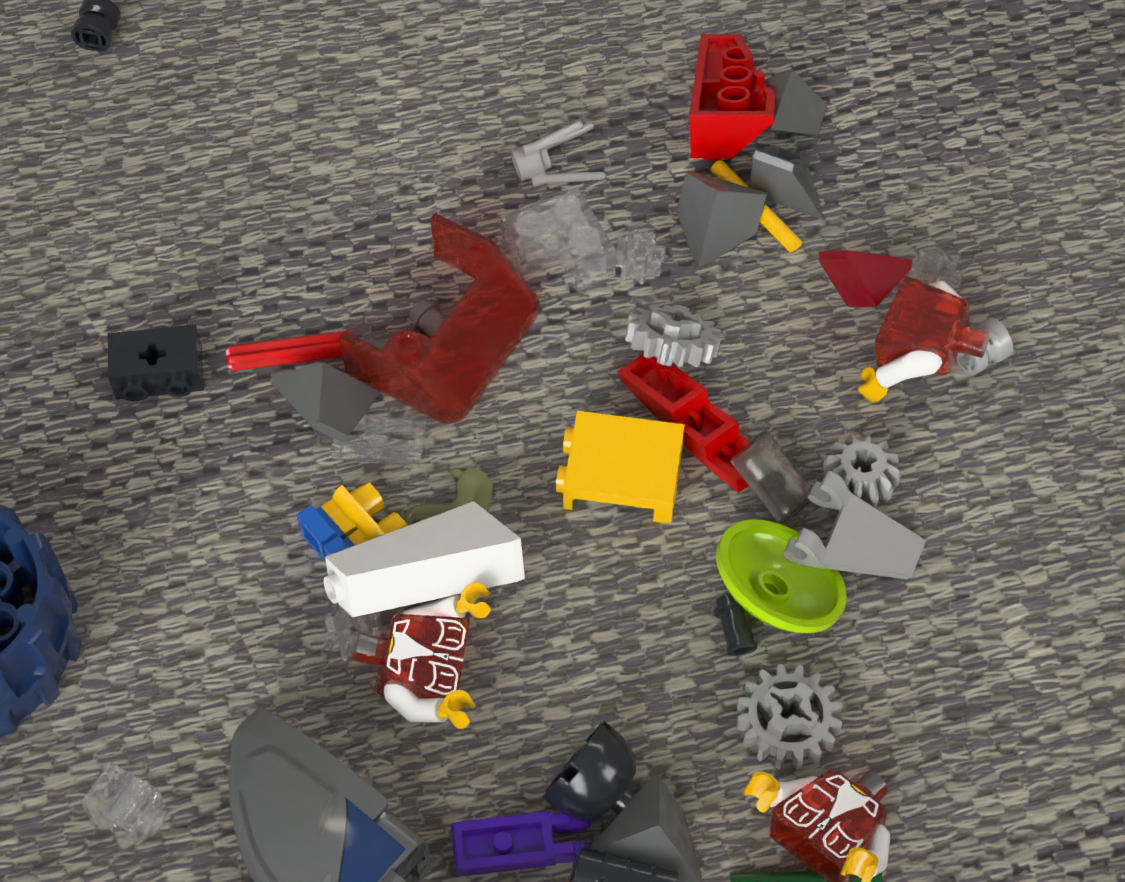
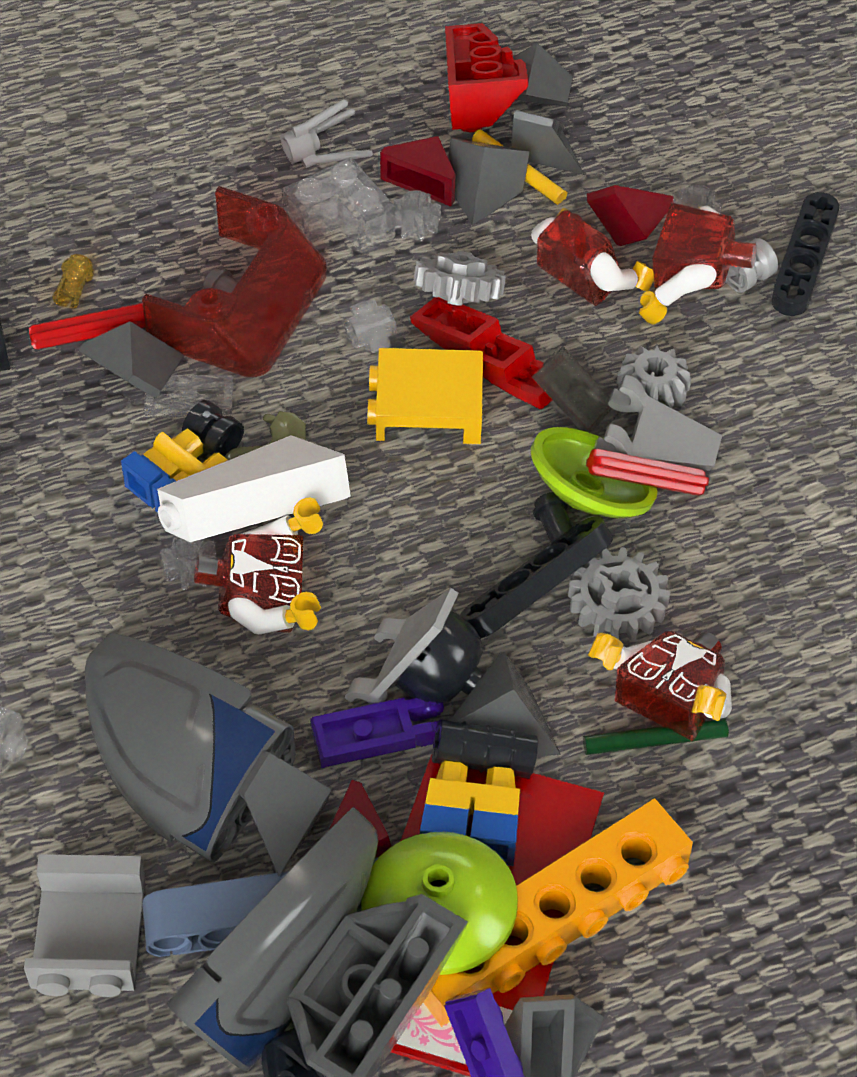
camera: 10 degrees left, 5 degrees down
(283, 288) = (76, 272): none -> clear yellow pin
(396, 483) = (214, 430): none -> black wheel
(568, 750) = (410, 639): none -> light grey flag
(573, 381) = (370, 326): none -> clear gear
(651, 201) = (420, 167): none -> dark red slope
(705, 689) = (538, 576): none -> black beam
(806, 323) = (584, 258): none -> clear red torso
(837, 581) = (647, 472): none -> axle
(1046, 336) = (805, 253): none -> black beam

